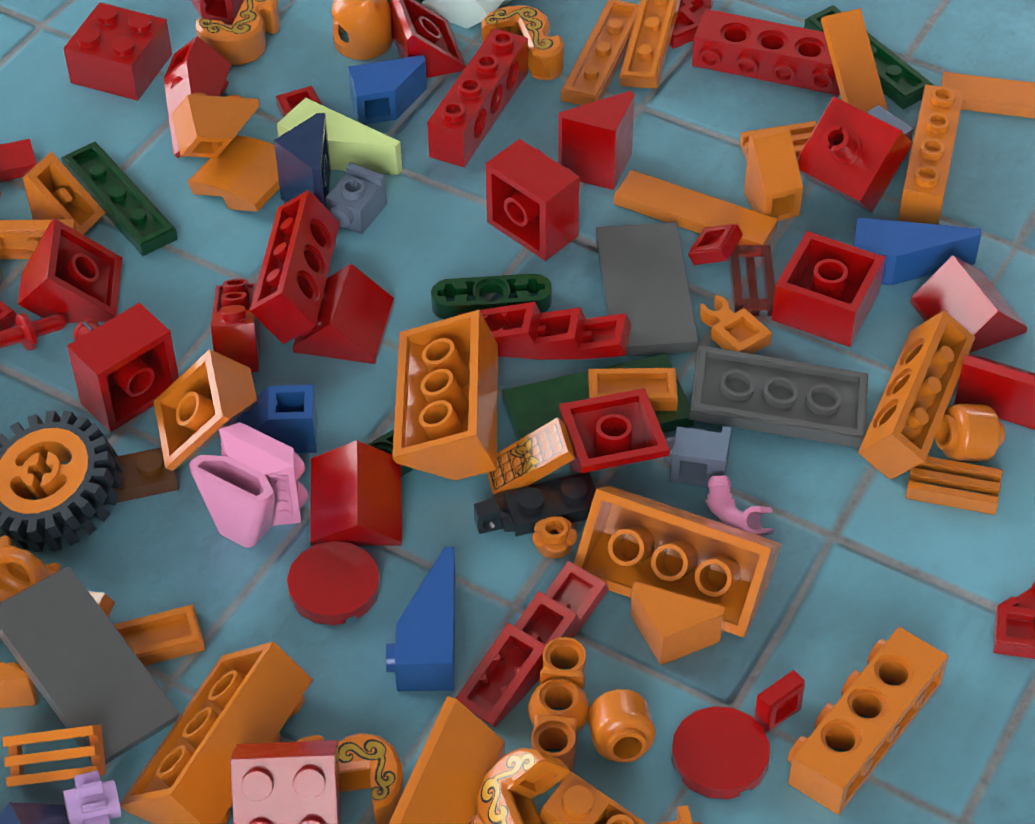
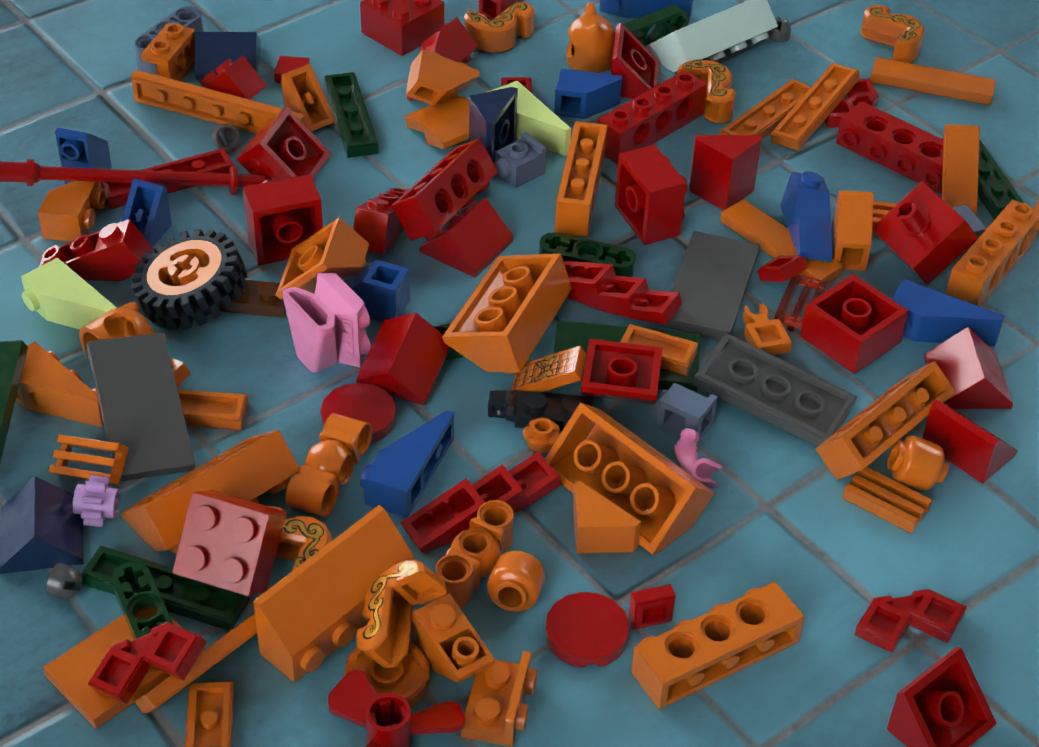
camera: 20 degrees right, 5 degrees down
(340, 660) = (329, 465): none -> orange piece
(442, 202) = (580, 179): none -> orange brick
(716, 171) = (808, 215): none -> blue slope

